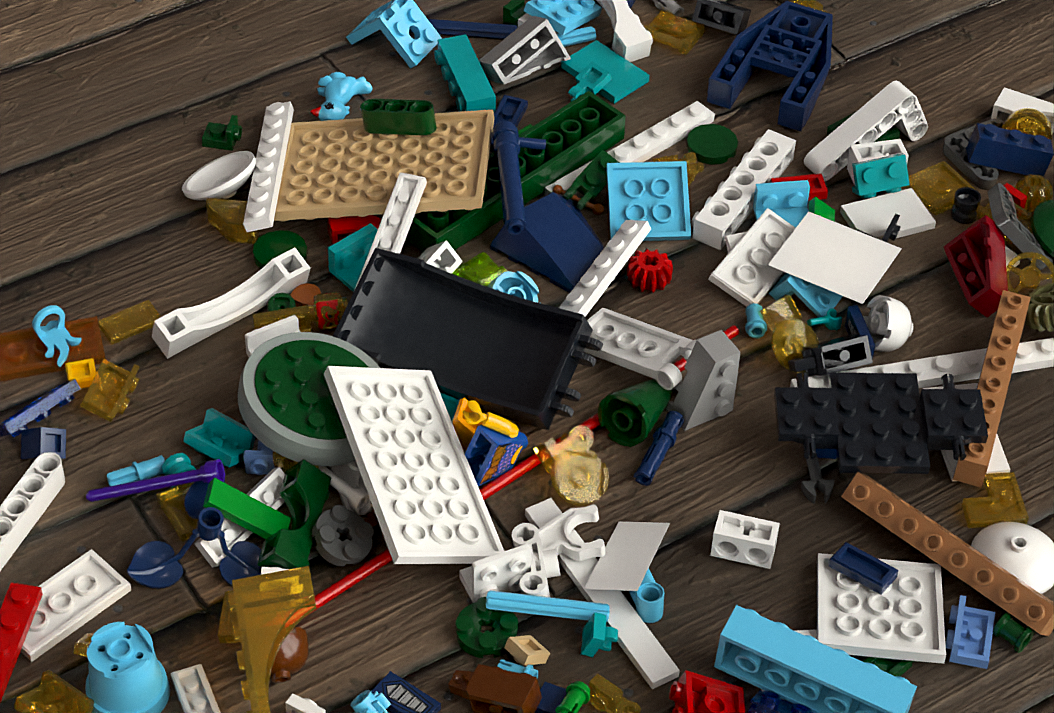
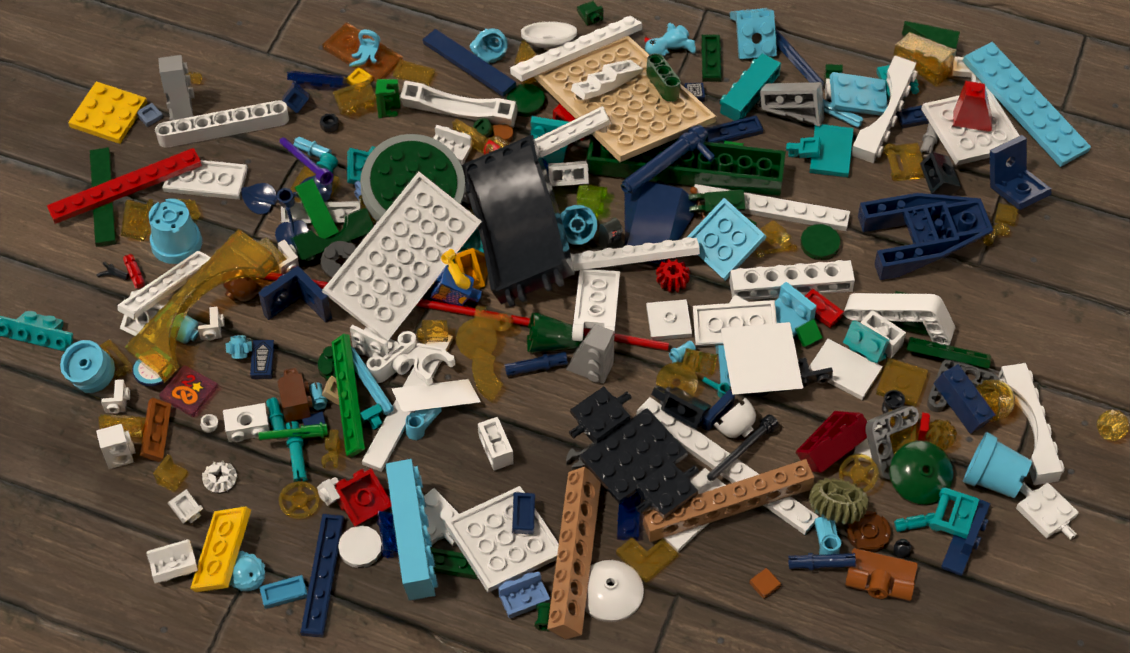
camera: 55 degrees right, 10 degrees up
(117, 435) = (329, 122): none -> black tile
(147, 355) = (387, 97): none -> green hinge
(174, 265) = (469, 62): none -> dark blue tile
(179, 238) = (487, 46): none -> medium azure hair
(351, 159) = (611, 77): none -> white slope
(353, 593) = (289, 289): none -> dark blue bracket
(388, 83) = (711, 58): none -> dark green tile
(531, 507) = (433, 331): none -> clear yellow bracket
(551, 286) = (611, 234): none -> pearl dark grey leg
(552, 636) = (347, 395): none -> green tile
(641, 501) = (484, 374): none -> clear yellow tile
(700, 308) = (669, 320): none -> white plate
(915, 309) = (767, 425): none -> black piece
(932, 489) = (629, 519): none -> clear blue plate
(942, 131) = (949, 352): none -> dark green tile

